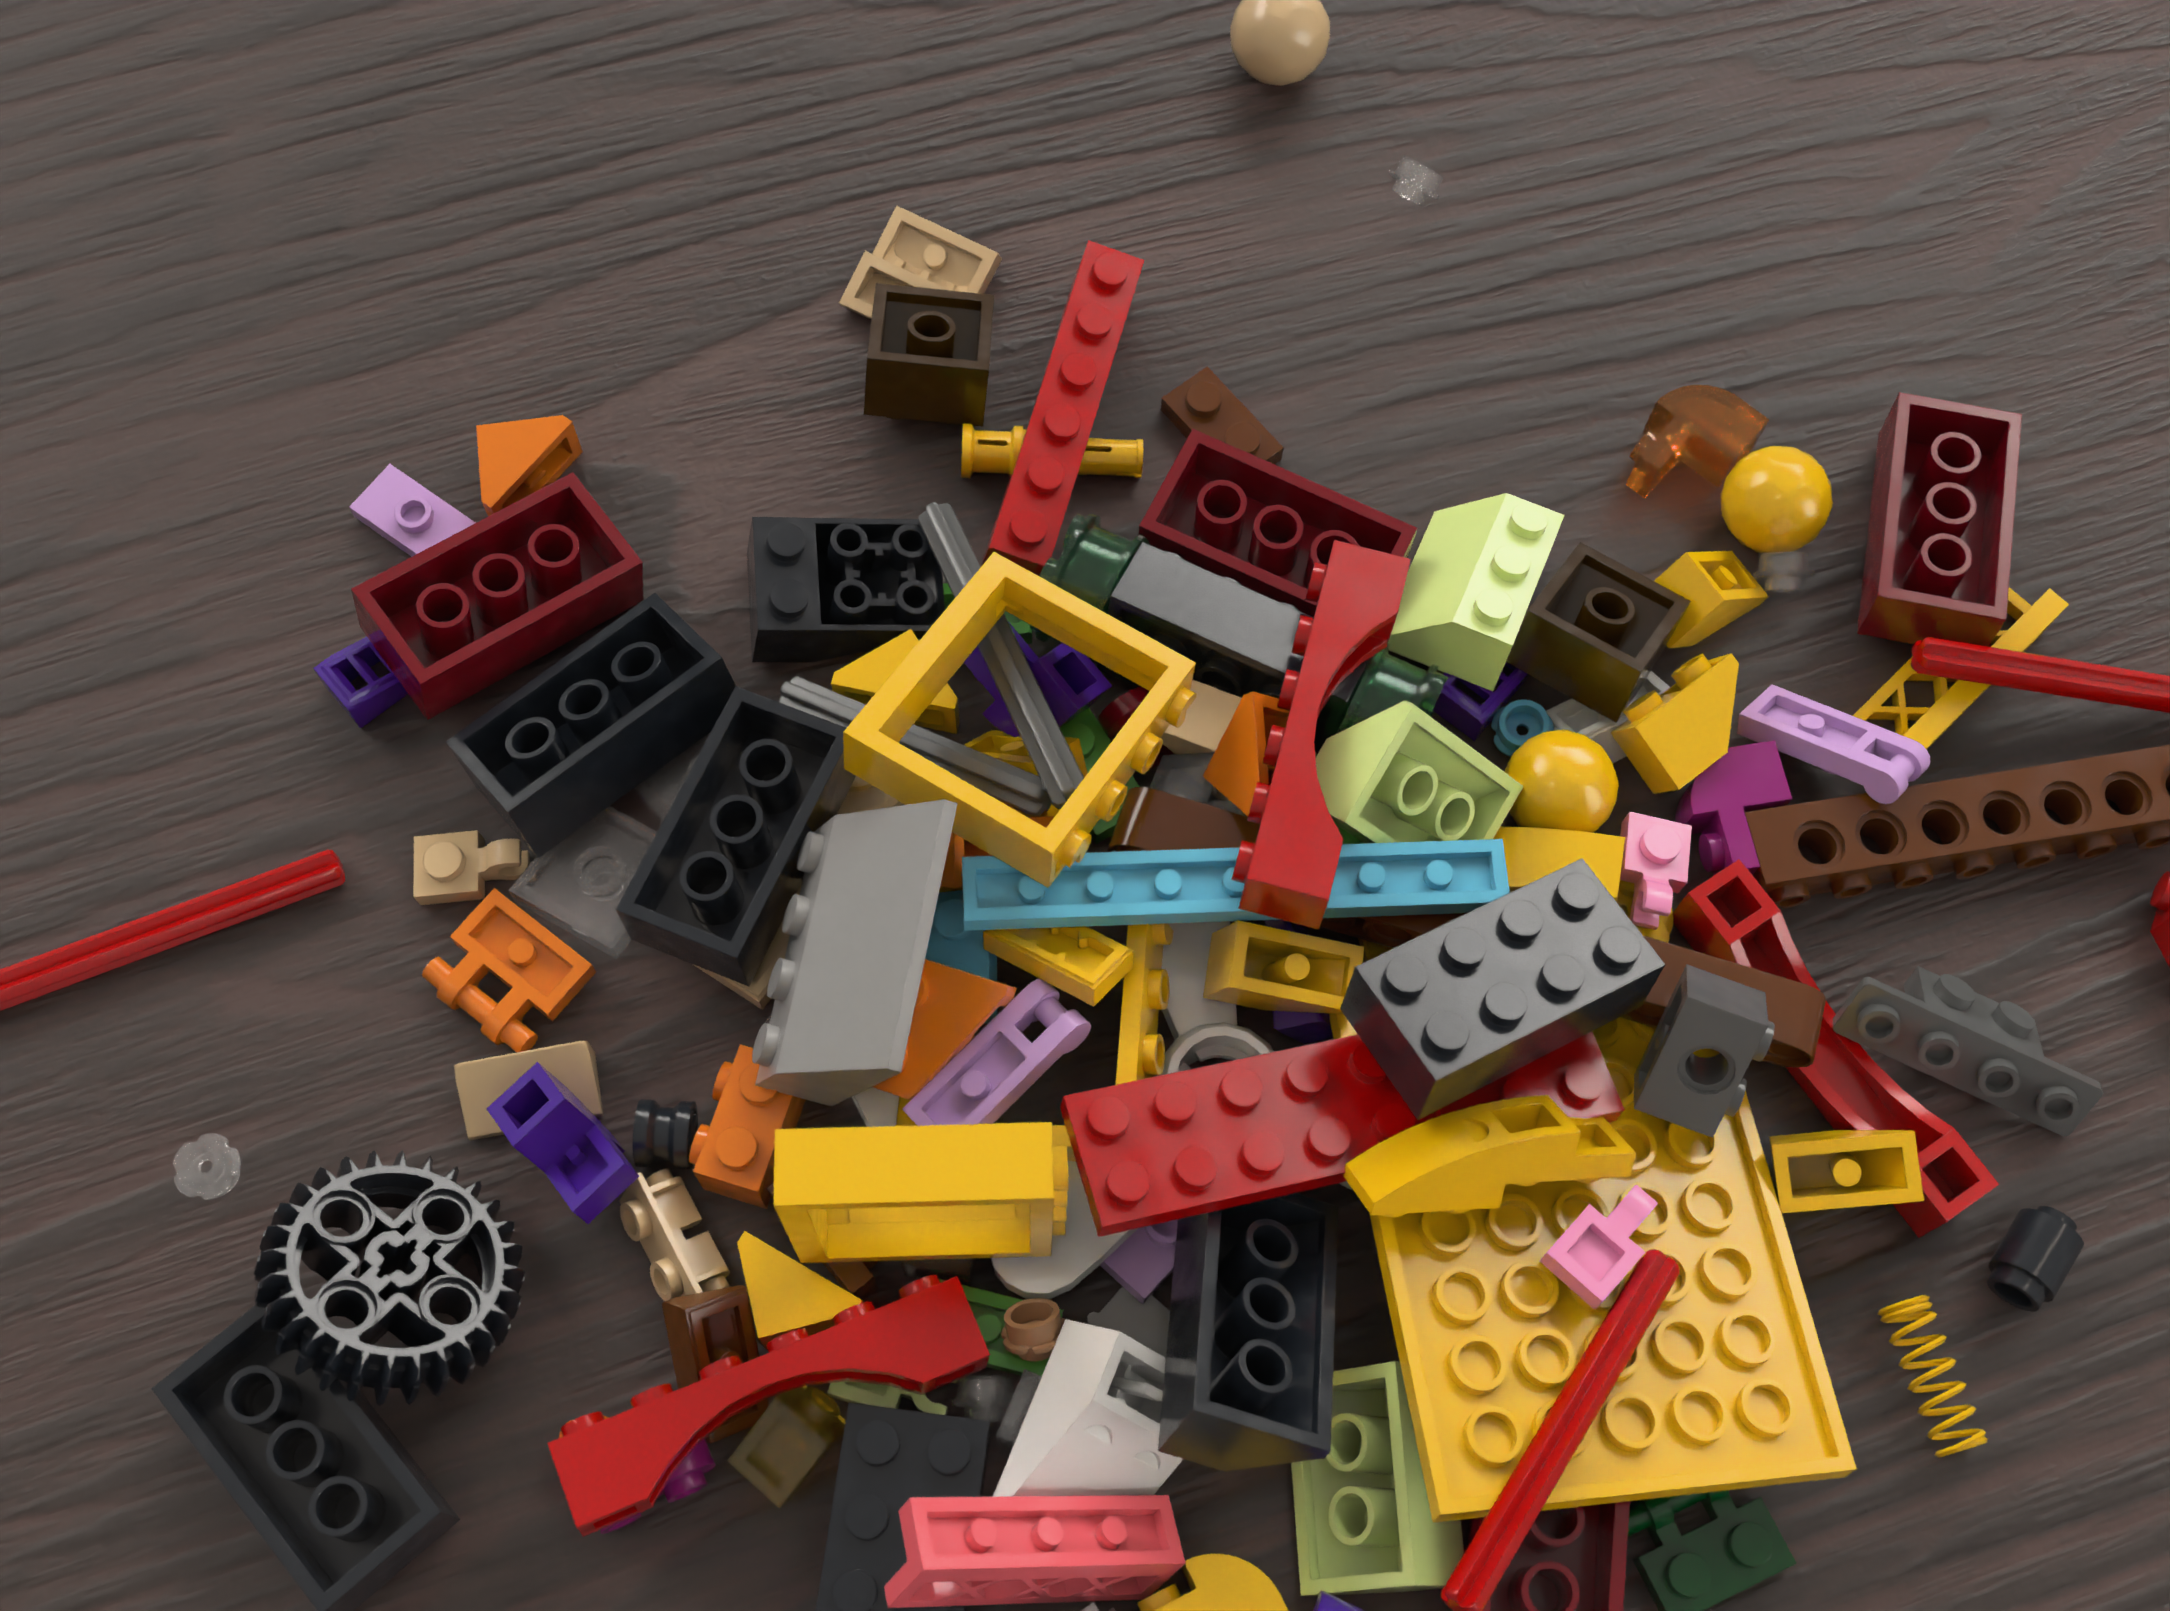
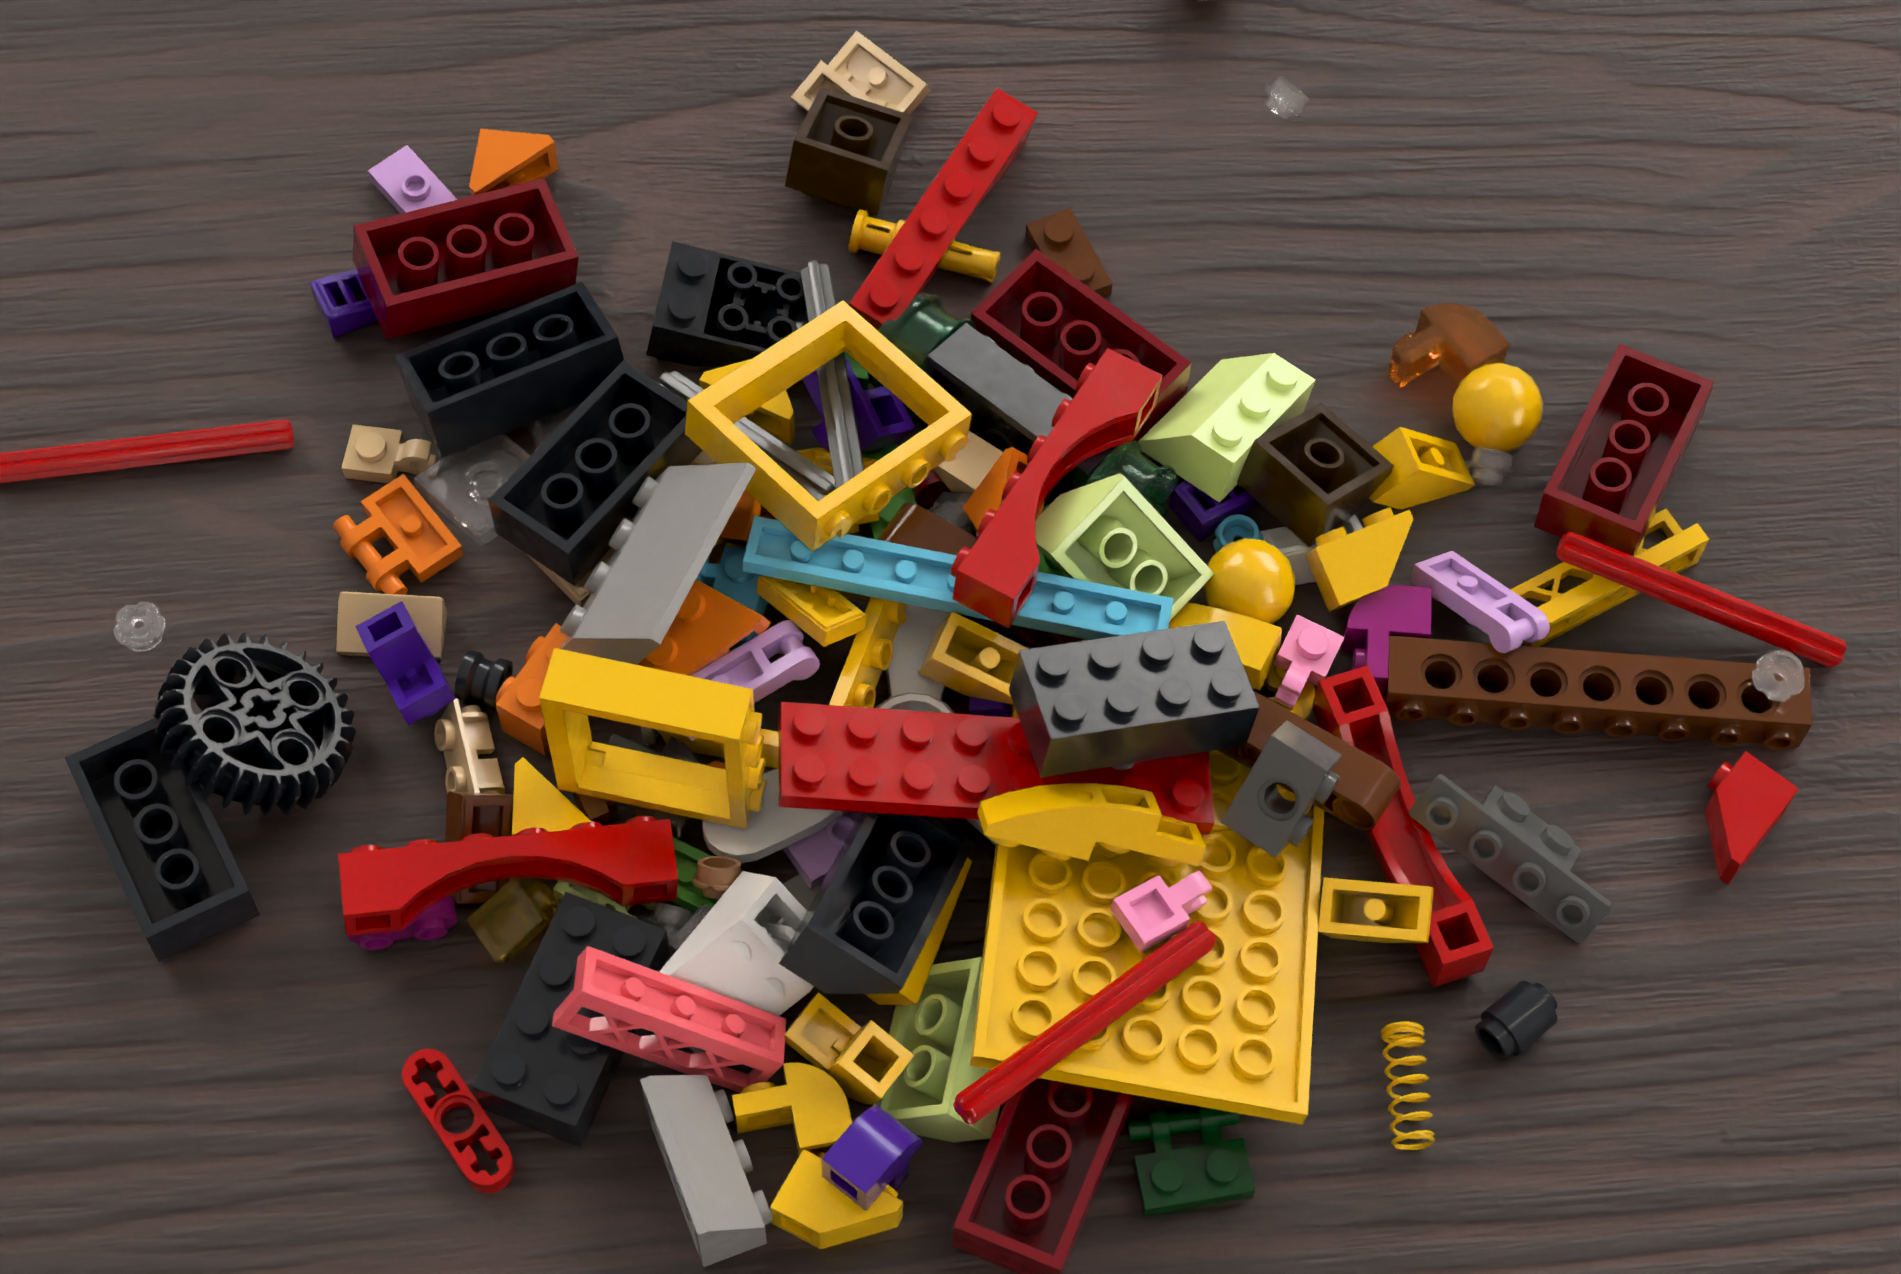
camera: 15 degrees right, 5 degrees down
(1260, 1520) = (859, 1058): none -> yellow brick

